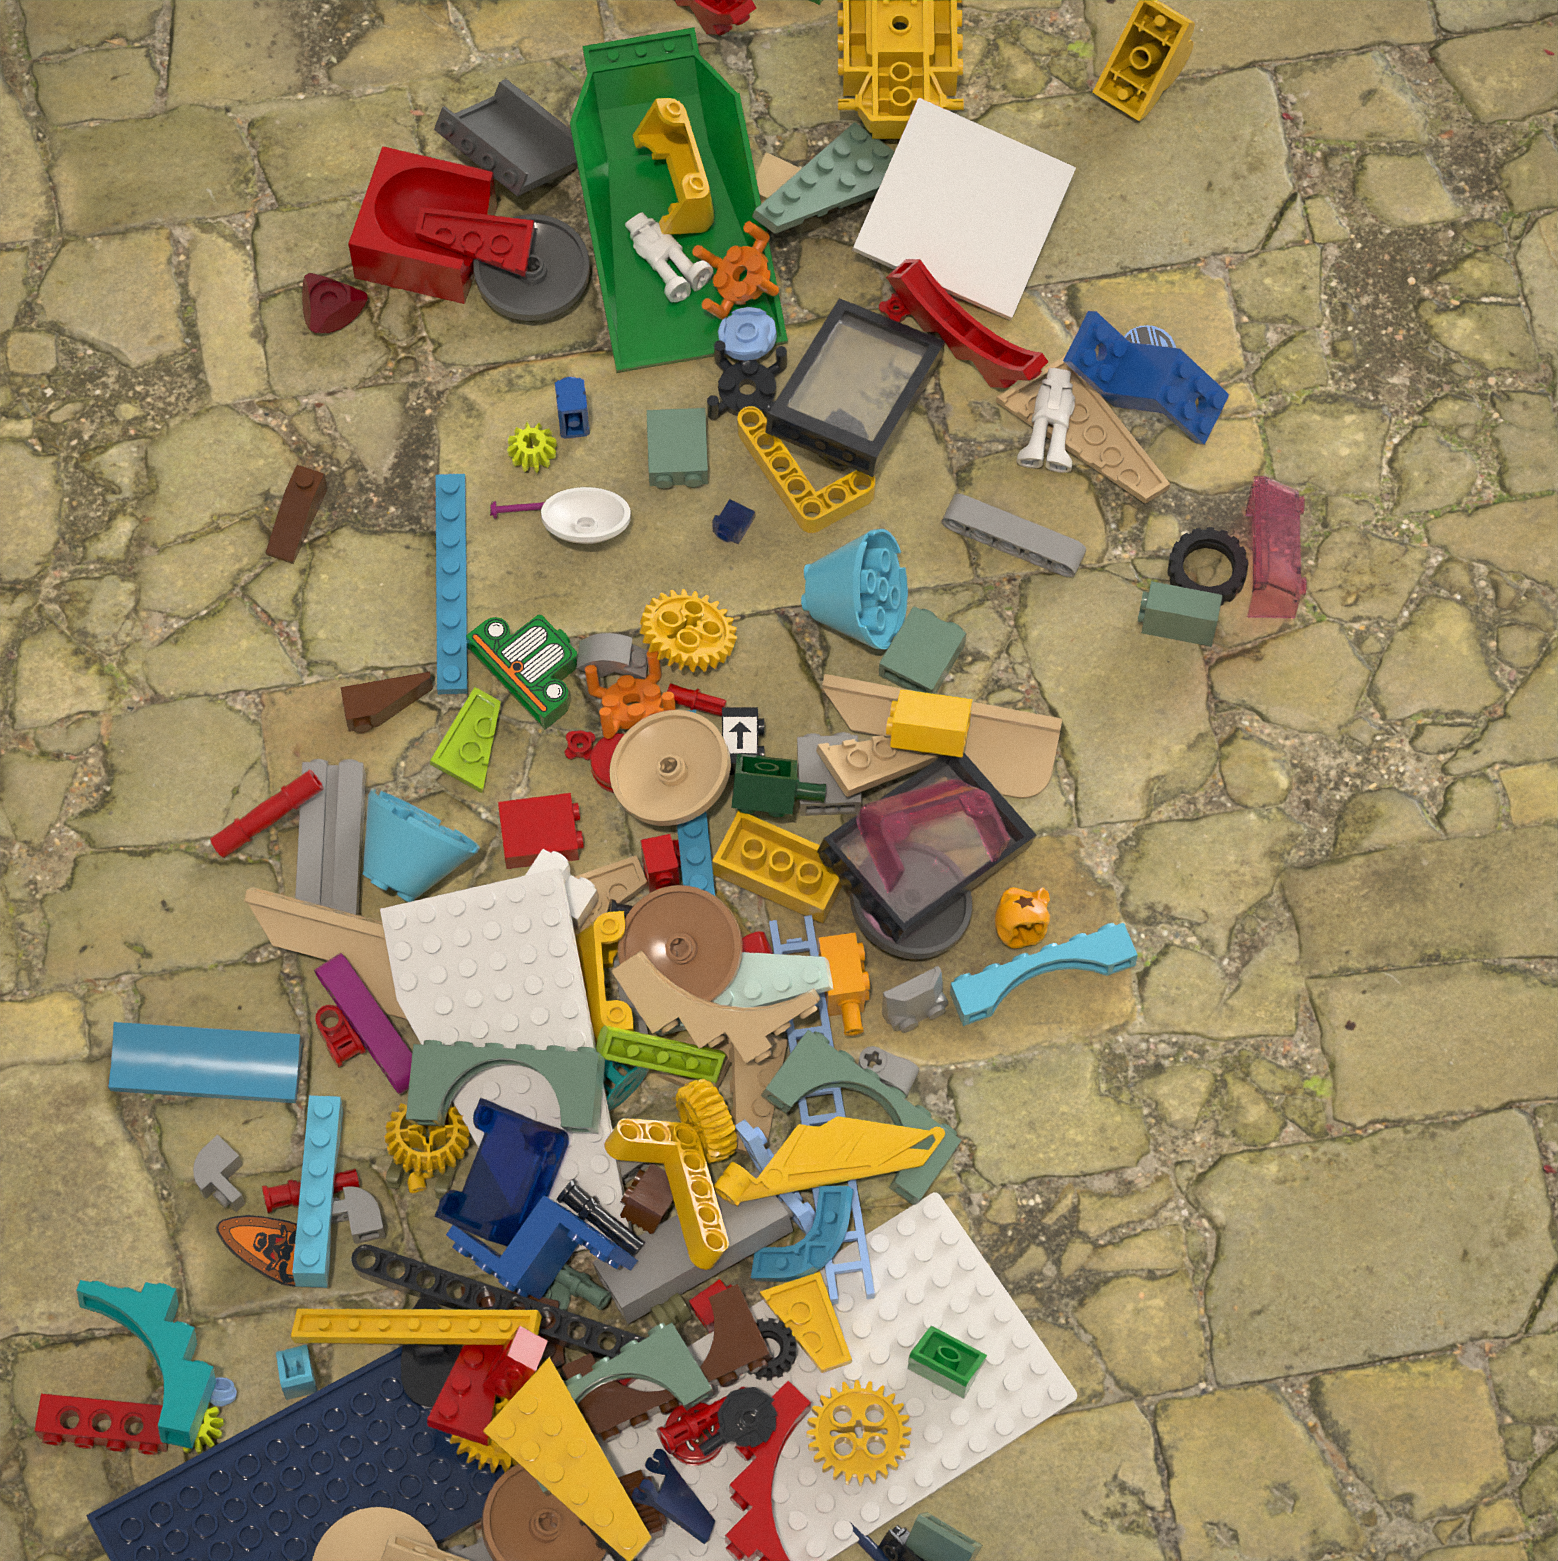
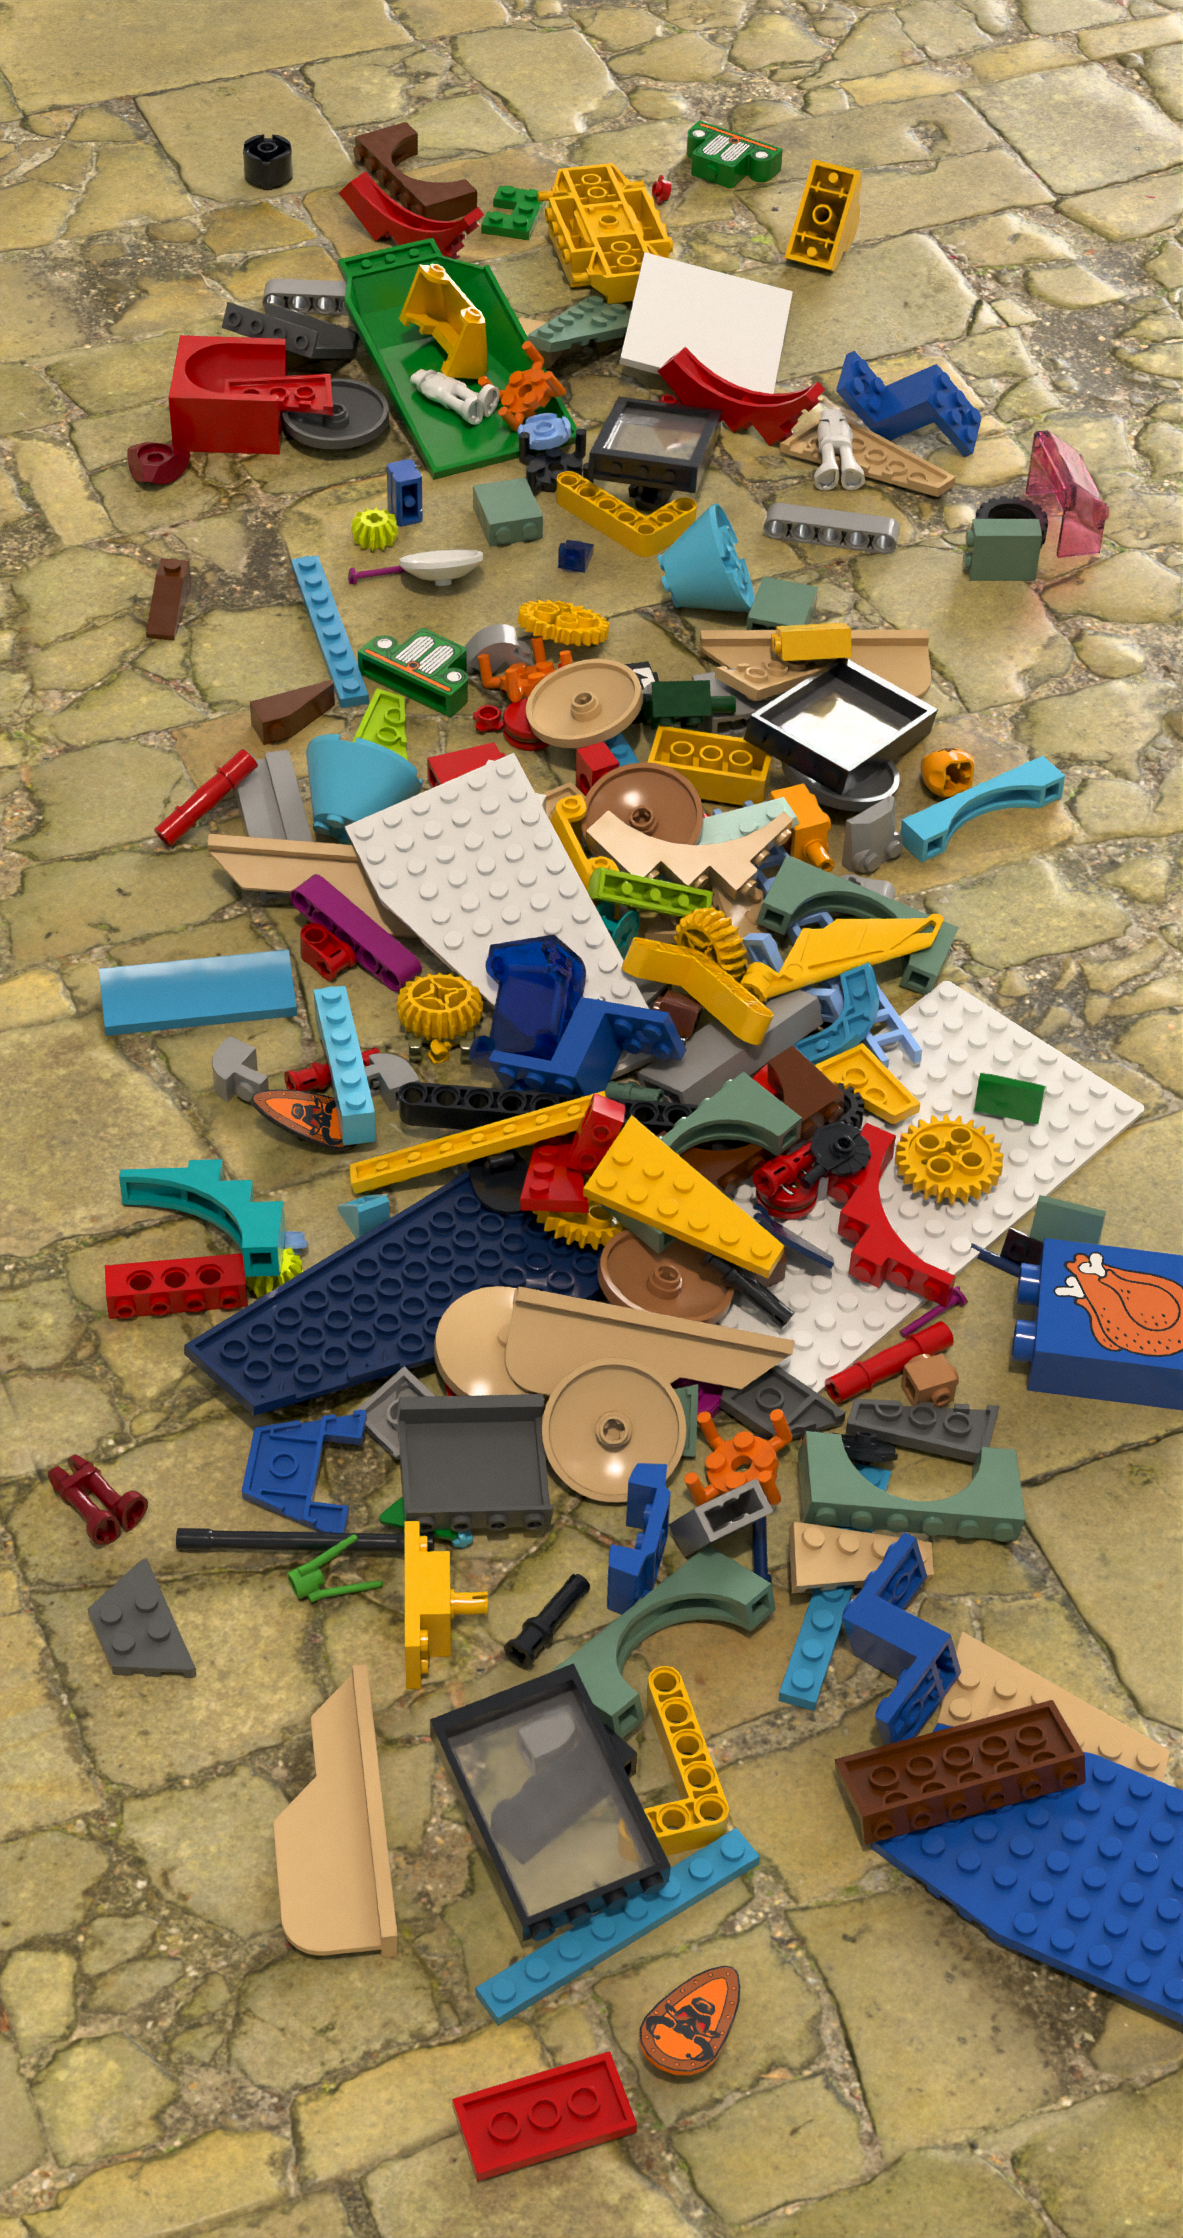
camera: 15 degrees left, 20 degrees down
(442, 1070) = (449, 931): sand green arch -> none
(544, 65) = (312, 296): none -> light grey beam
(889, 822) = (814, 696): clear pink windscreen -> none

